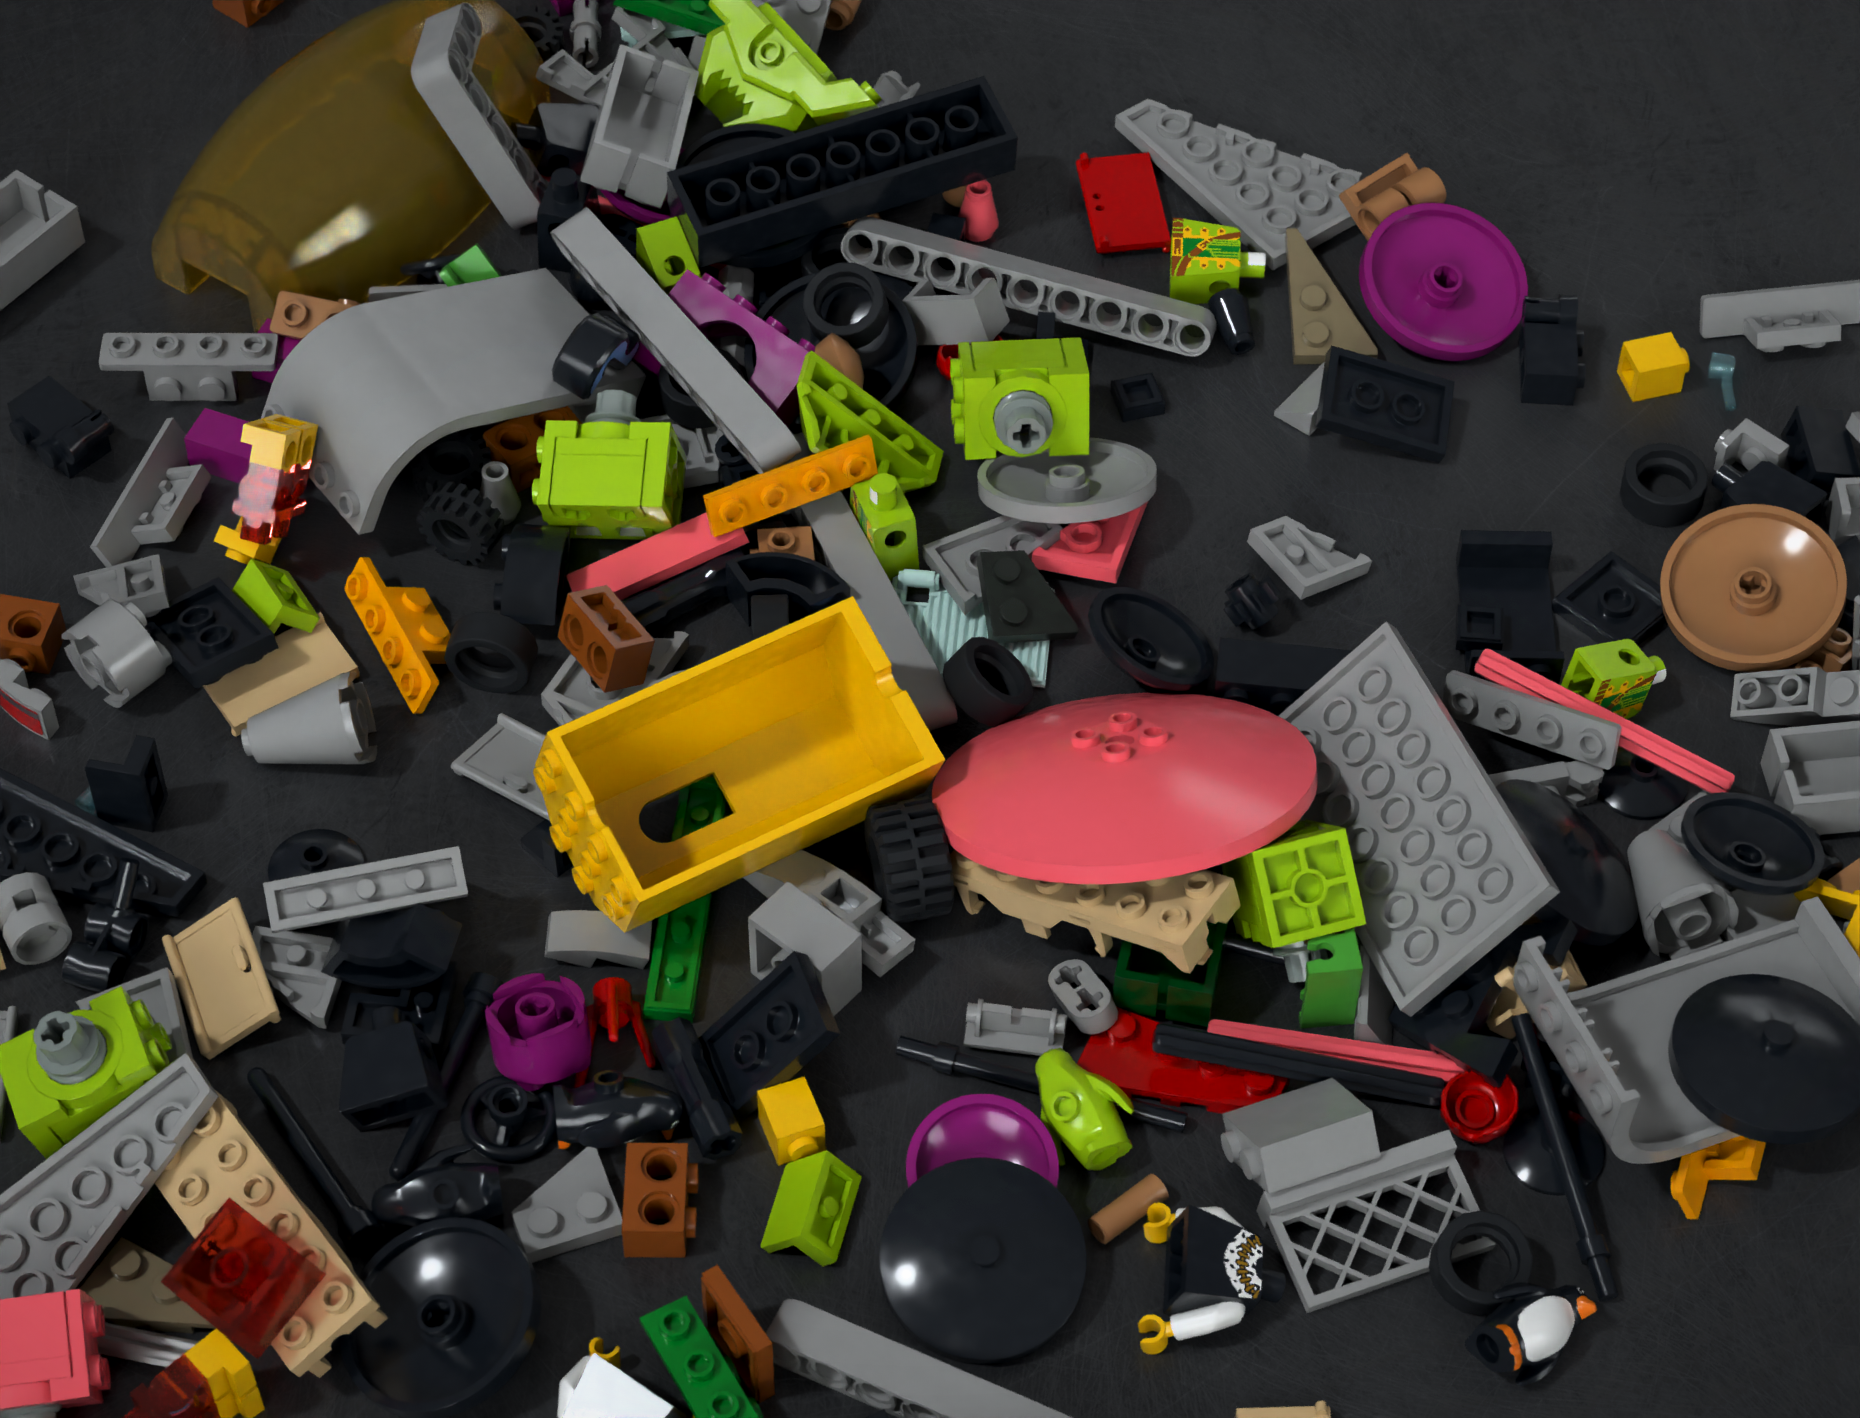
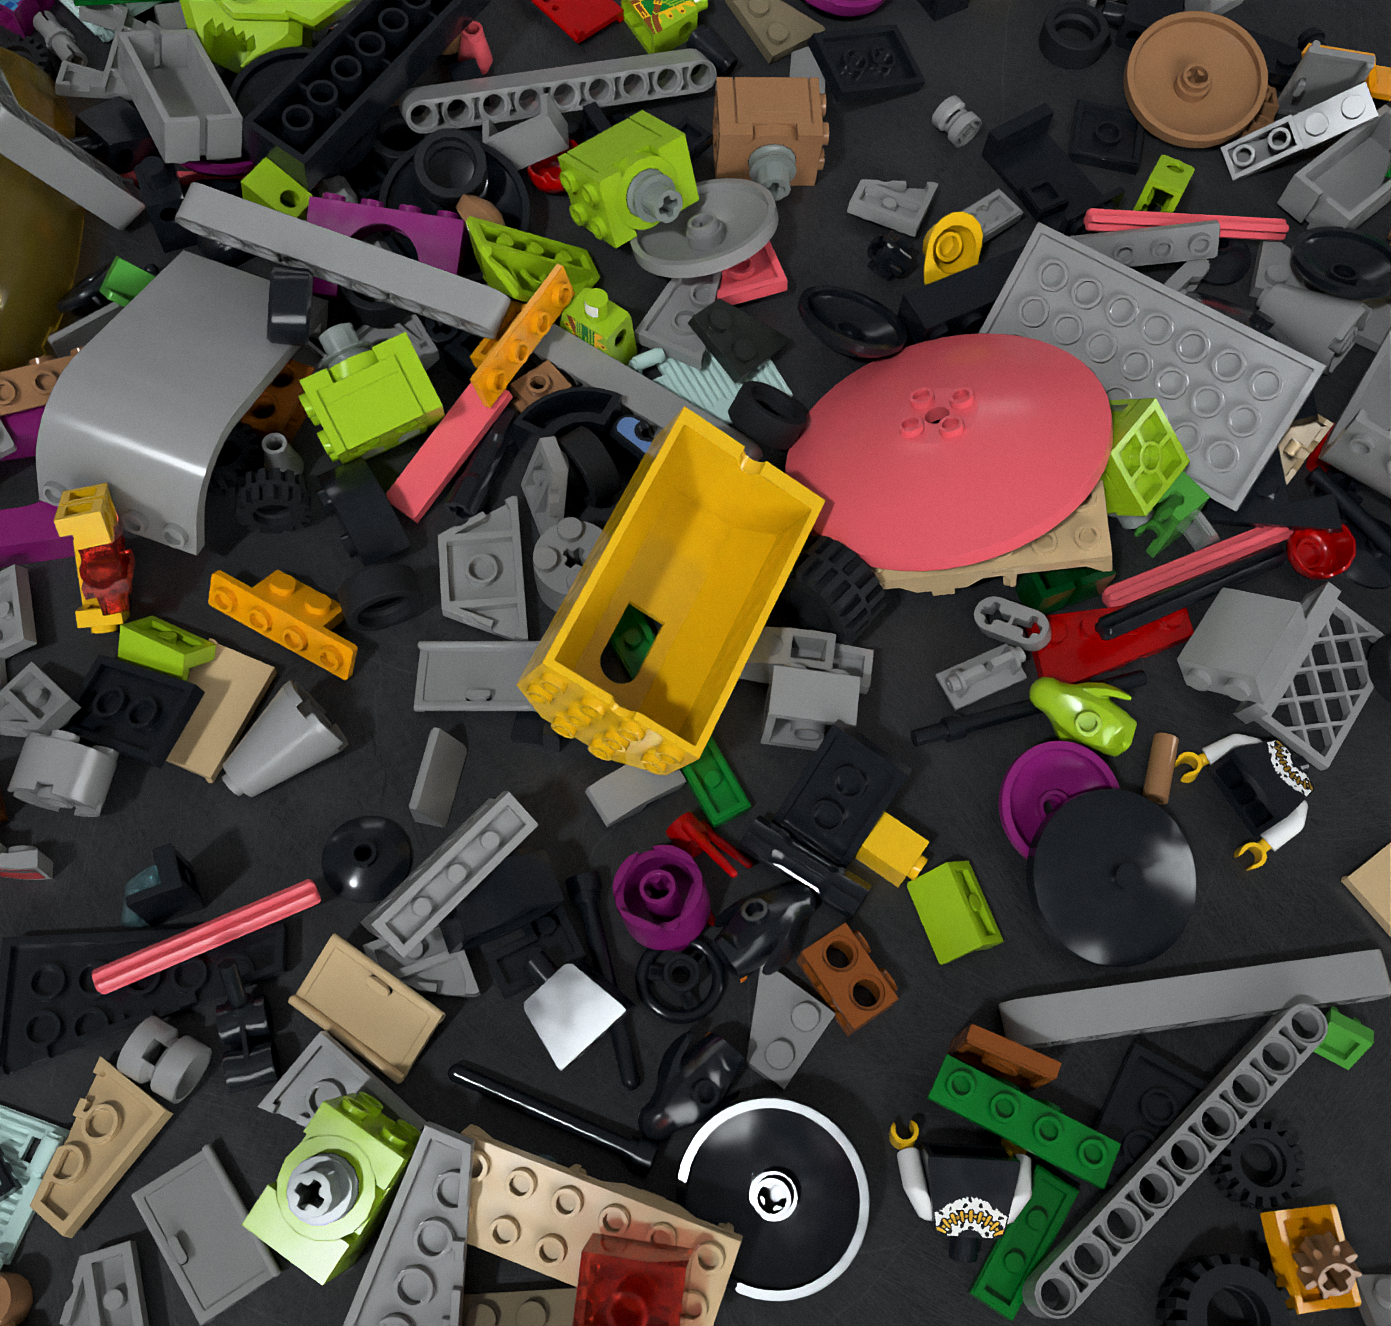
camera: 40 degrees left, 15 degrees up
(135, 842) = (205, 936): none -> coral axle
(432, 825) = (437, 779): none -> light grey slope
(605, 638) = (470, 537): dark orange brick -> none
(727, 619) = (546, 483): none -> light grey wing
(1211, 423) = (769, 131): none -> medium nougat piece
(1319, 617) = (951, 246): none -> yellow piece
(1412, 615) = (994, 214): none -> light grey plate
(1444, 508) = (956, 121): none -> light grey wheel

